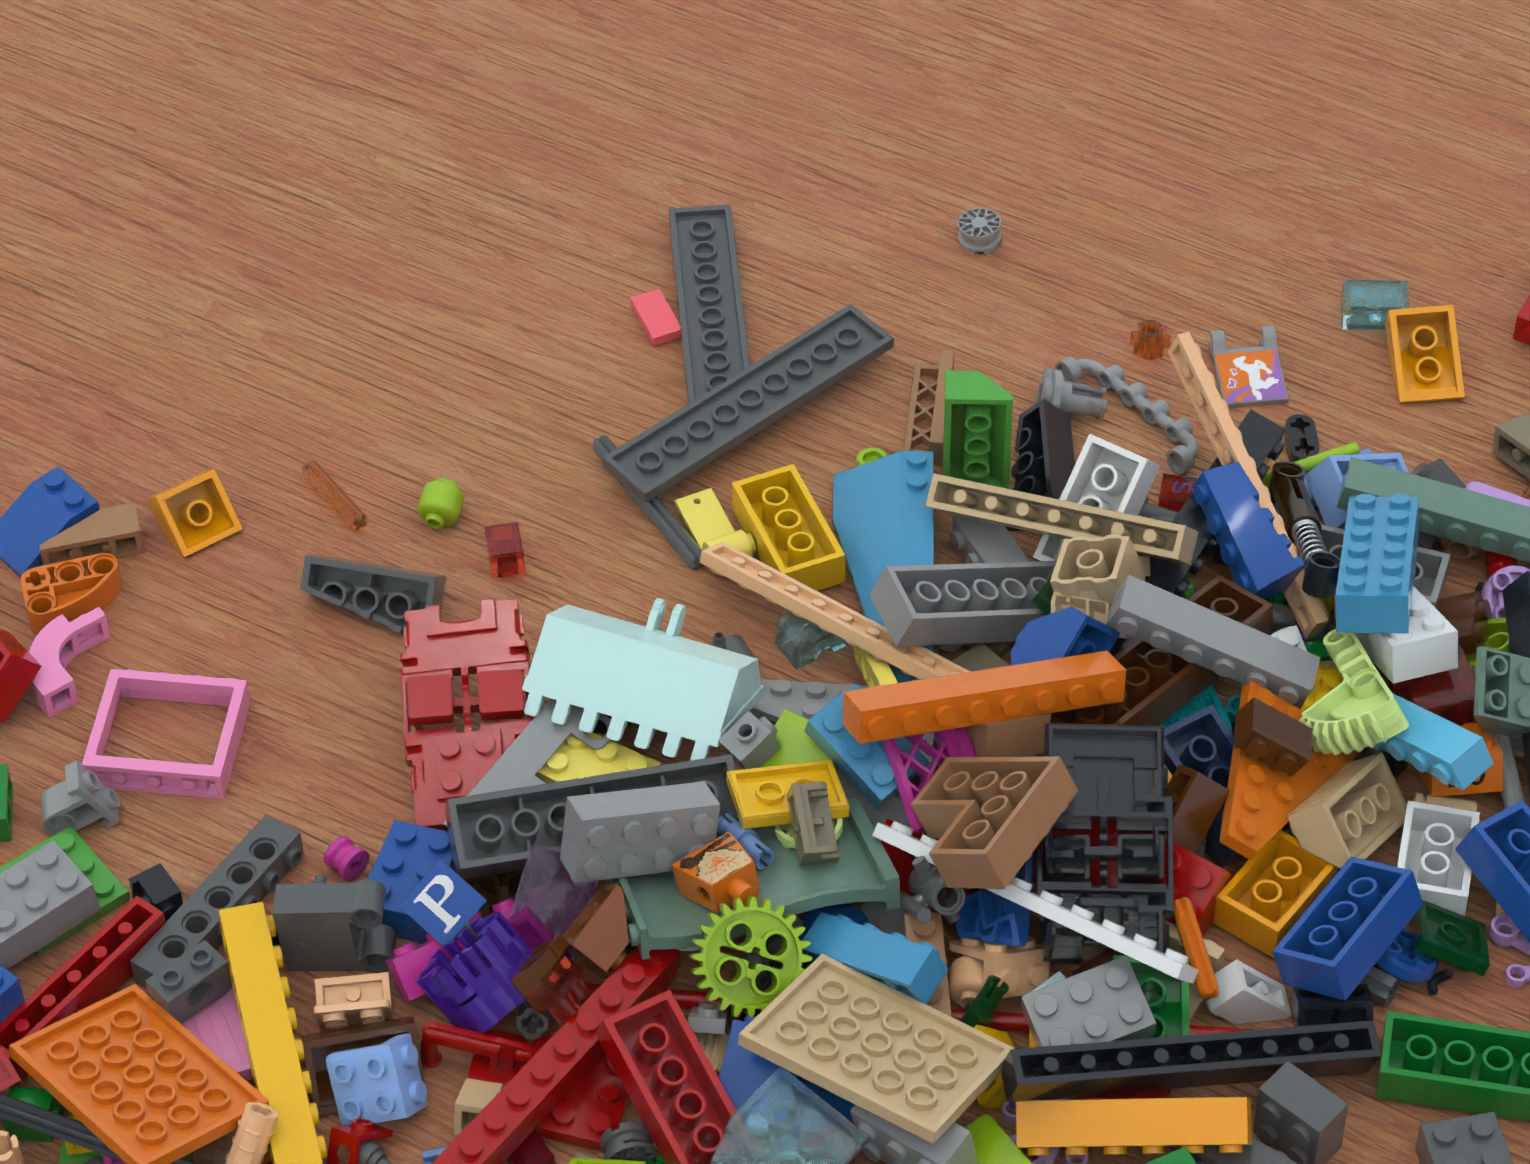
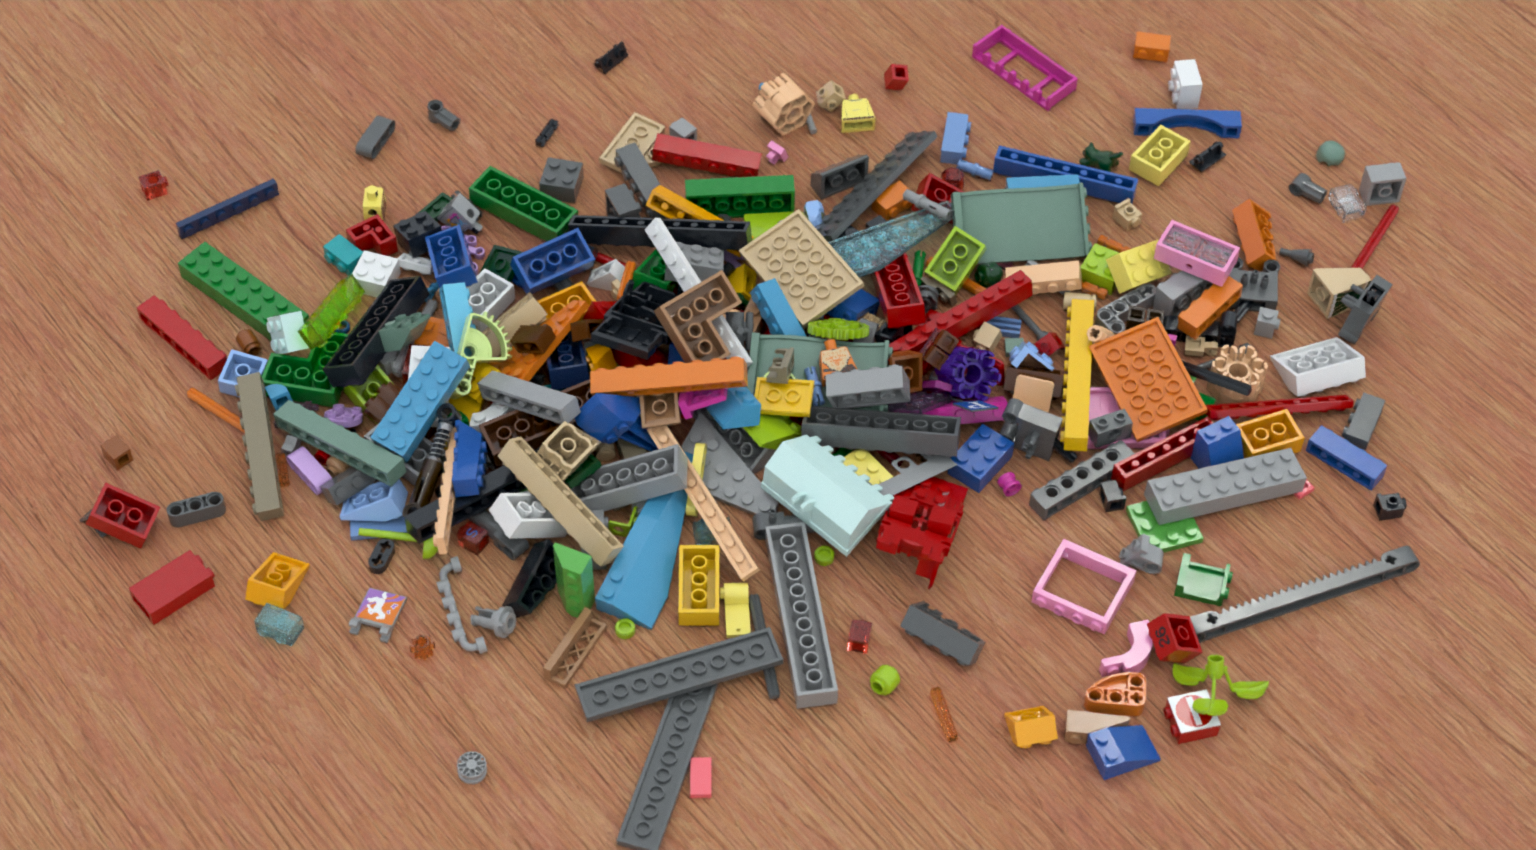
camera: 160 degrees left, 5 degrees up
(425, 1129) = (1009, 343): none -> sand green tile
(601, 527) = (801, 615): none -> light grey brick
(751, 741) = (787, 429): light grey brick -> none

